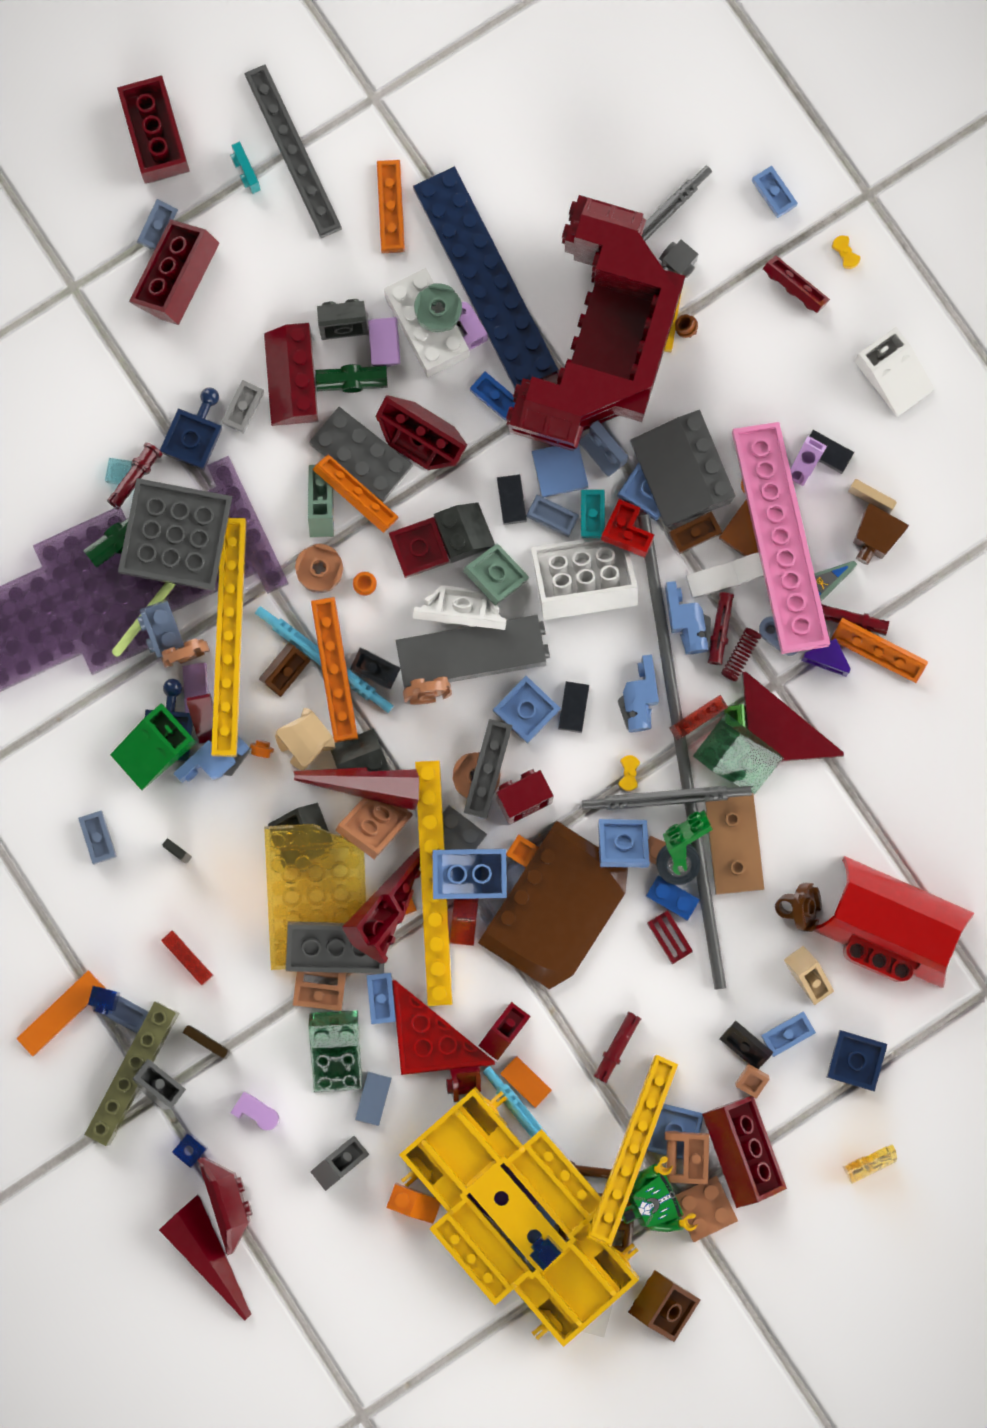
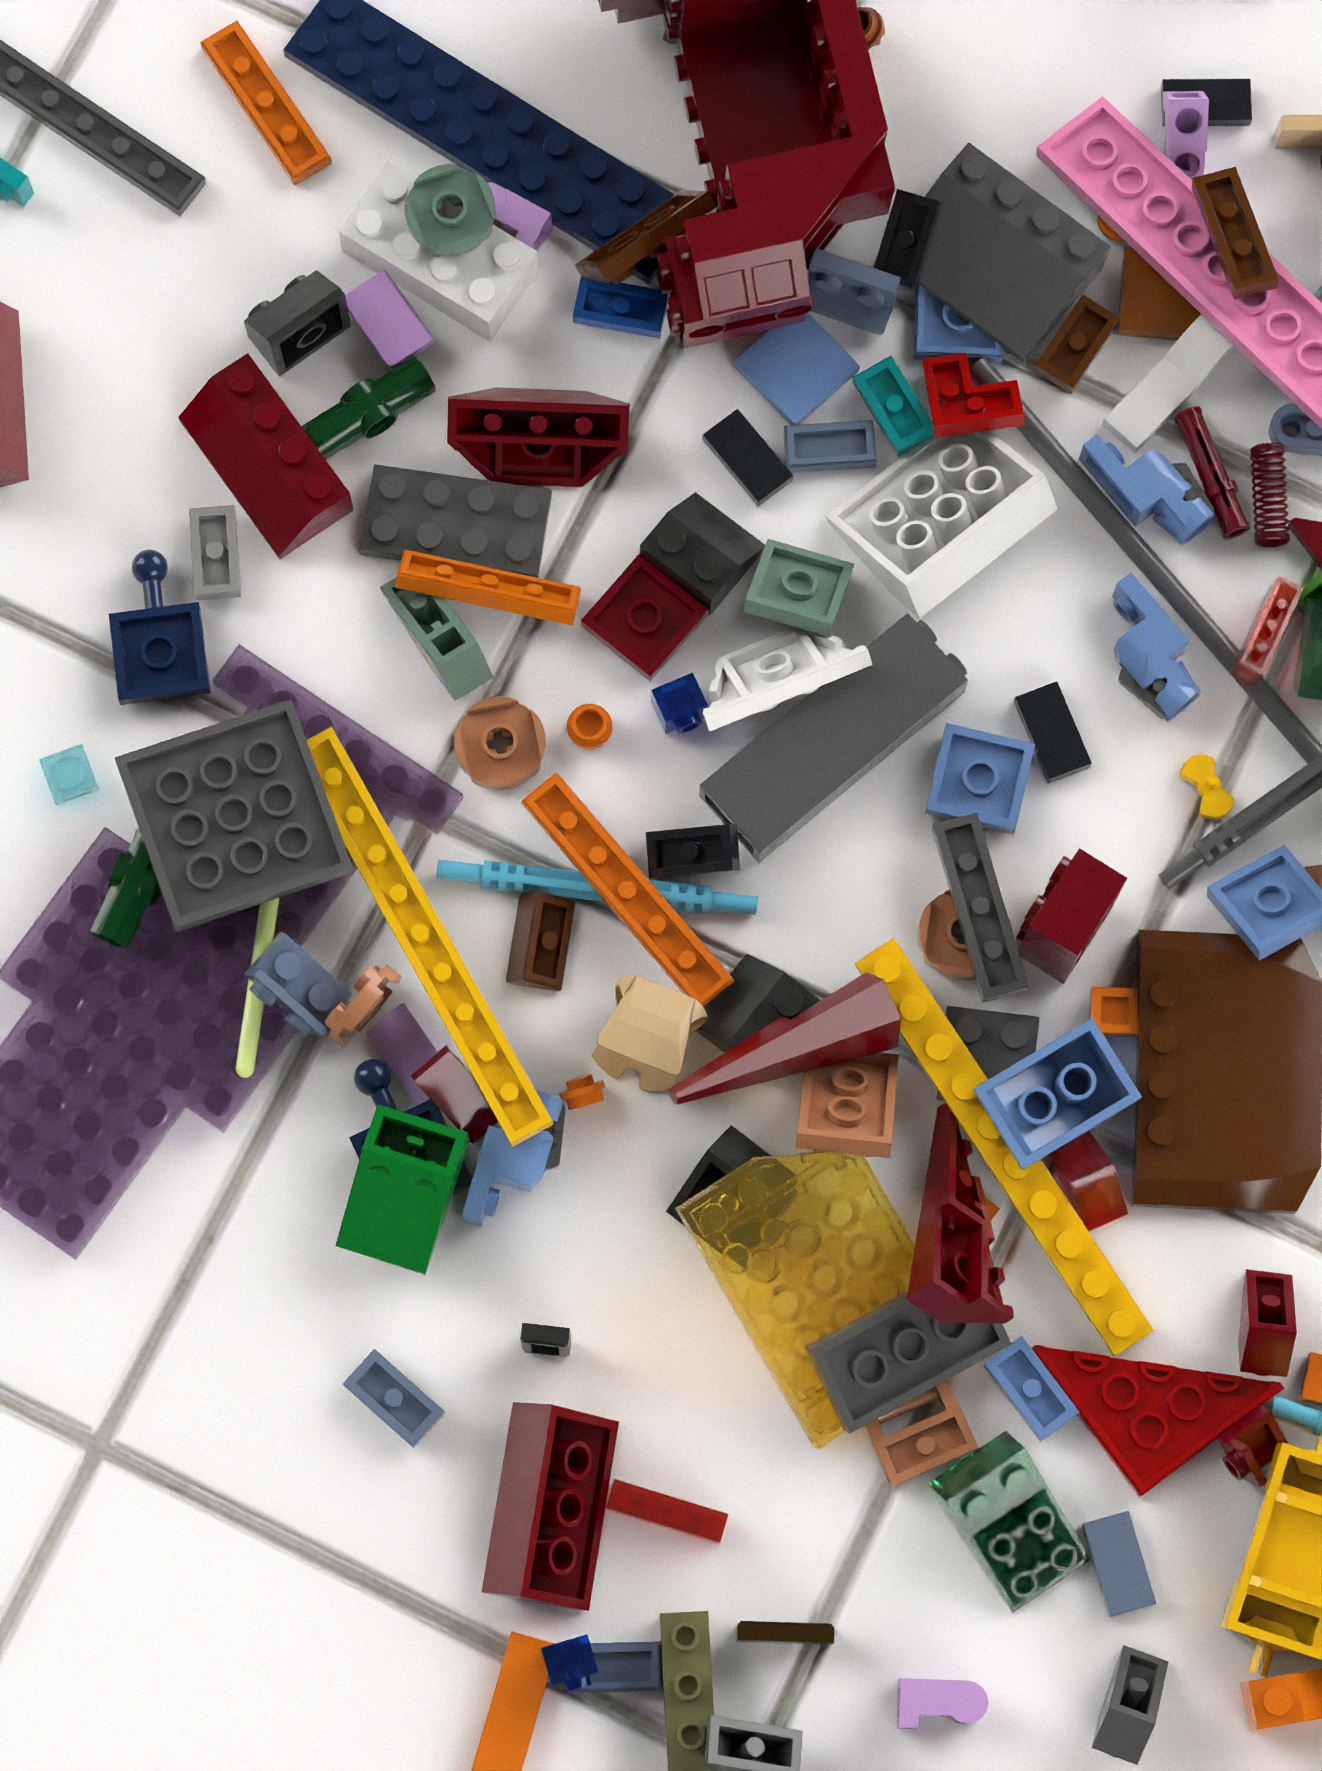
camera: 30 degrees left, 5 degrees down
(137, 925) = (550, 1506): none -> dark red slope
(140, 467) = (103, 745): dark red pin -> none
(410, 597) = (679, 704): none -> clear blue plate
(426, 692) = (798, 840): nougat plate -> none
(500, 373) = (645, 237): none -> reddish brown plate
(643, 438) = (908, 236): none -> black plate
(795, 523) = (1234, 233): none -> reddish brown plate

